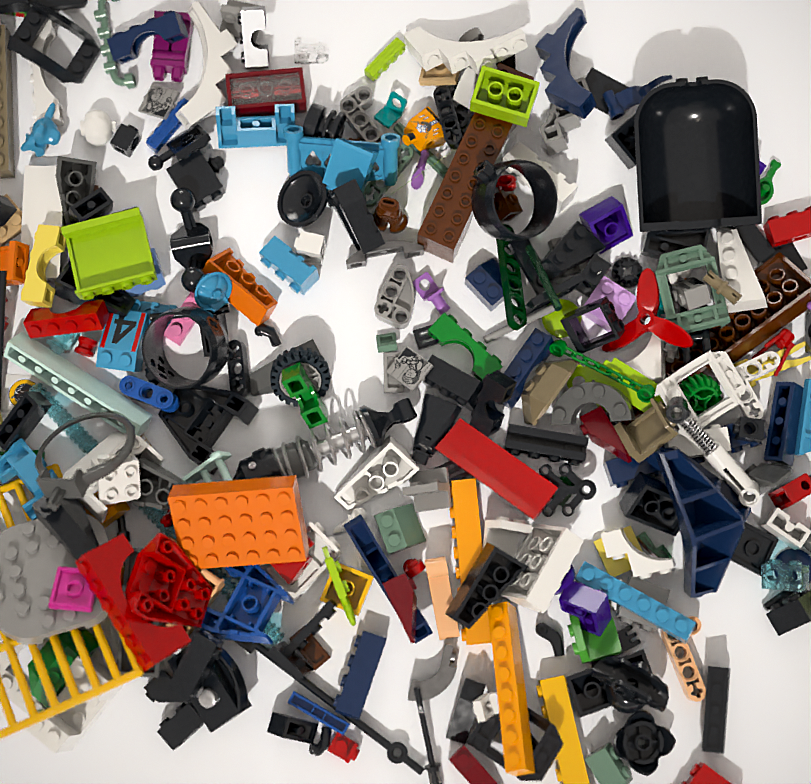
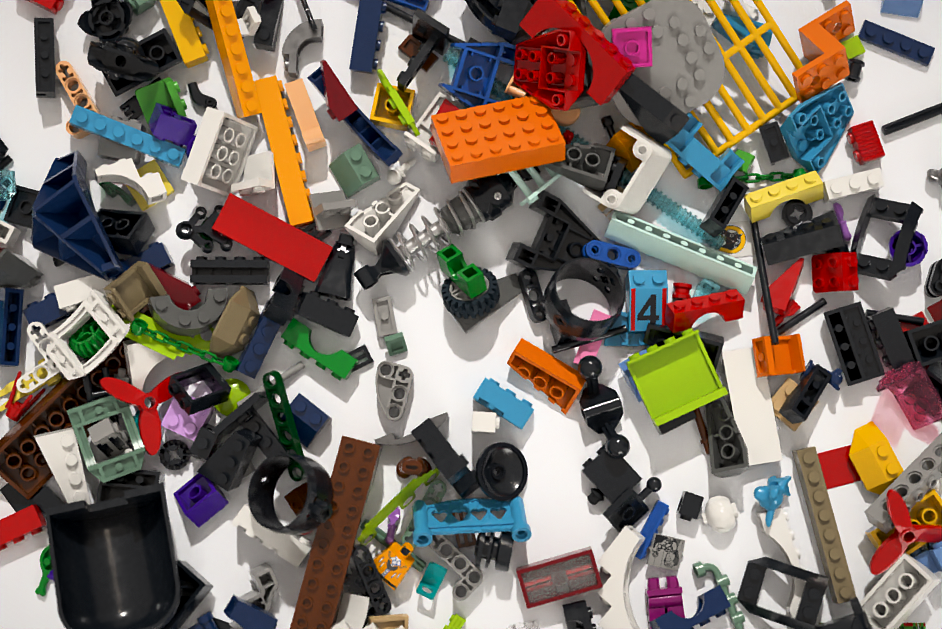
camera: 170 degrees right, 5 degrees up
(47, 244) = (739, 334): light yellow arch -> none
(76, 487) = (654, 136): dark grey brick -> none
(91, 207) = (705, 422): black brick -> none
(122, 483) = (619, 161): white bracket -> none
(213, 291) = (569, 359): dark azure piece -> none
(253, 131) = (561, 535): dark azure bracket -> none
(269, 332) = (510, 336): black arm -> none
(347, 163) = (457, 504): dark azure slope -> none
(409, 369) = (368, 319): piece -> none
(413, 567) = (335, 135): red plate -> none
(432, 294) = (359, 399): medium lavender bracket -> none
(484, 584) = (266, 126): black wedge -> none
(504, 96) = (313, 597): lime brick -> none
(543, 278) = (251, 422): clear green bar -> none
(714, 453) = (67, 277): piece -> none
(722, 287) = (77, 441): dark tan pin -> none
(756, 425) = (31, 308): black brick -> none

